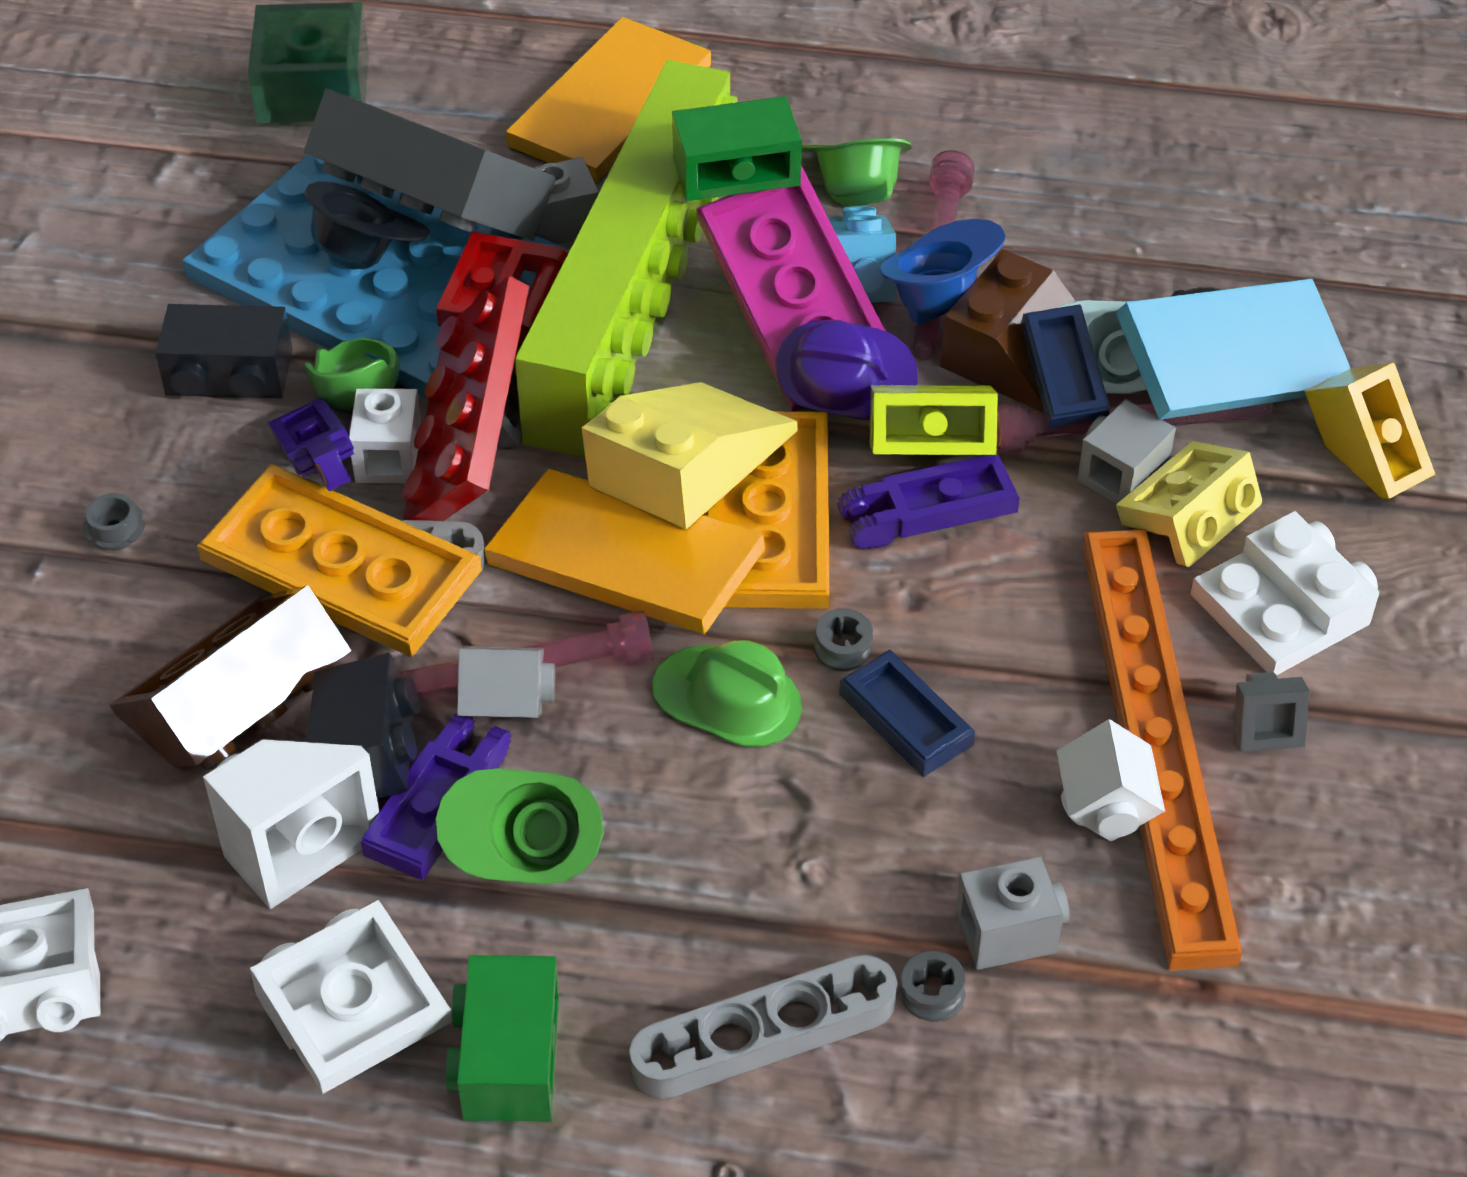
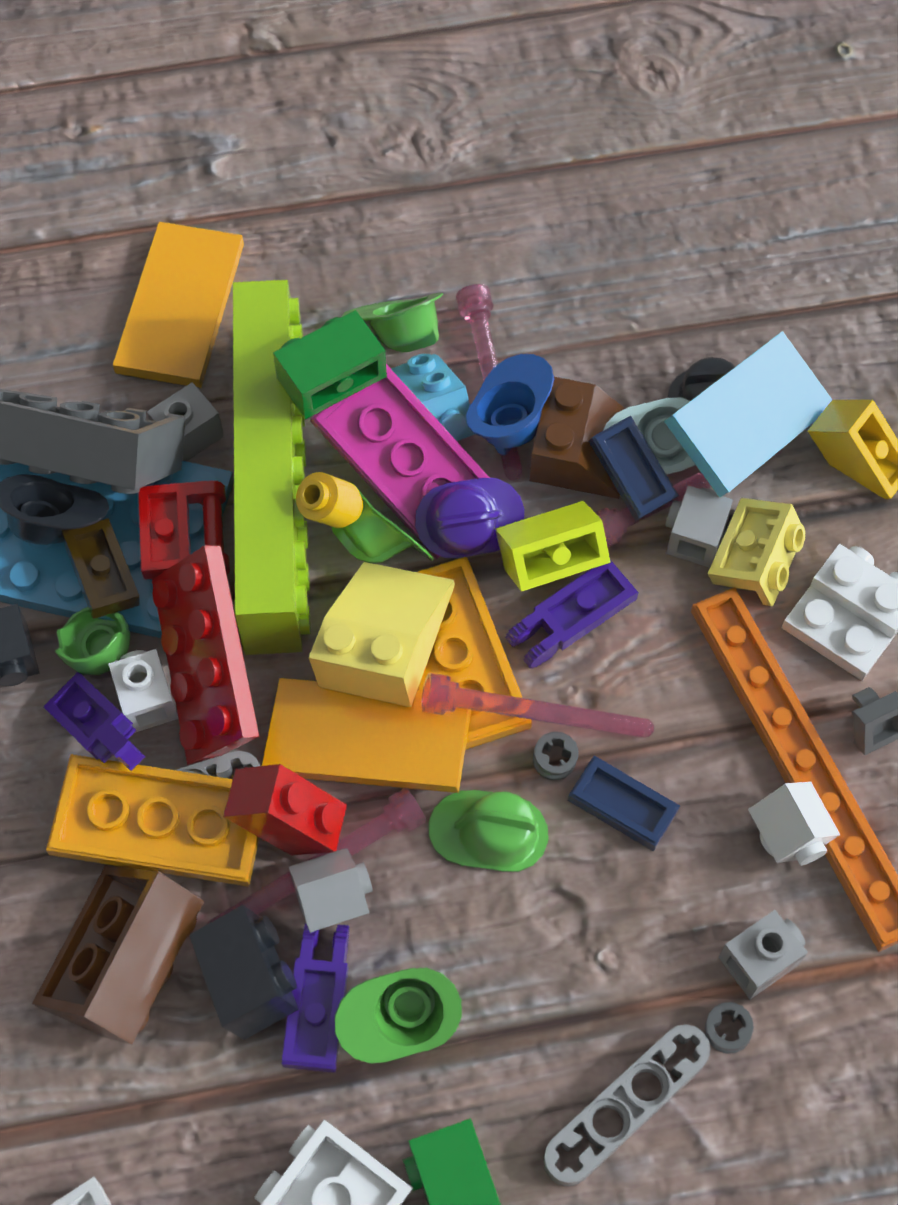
camera: 20 degrees left, 15 degrees up
(291, 812) = (224, 1067): white slope -> none
(393, 298) = (101, 569): none -> dark brown plate
(486, 577) = (285, 810): none -> red brick
(679, 286) = (329, 500): none -> yellow brick
(723, 353) = (375, 537): none -> bright green piece
(730, 519) = (444, 695): none -> clear pink piece

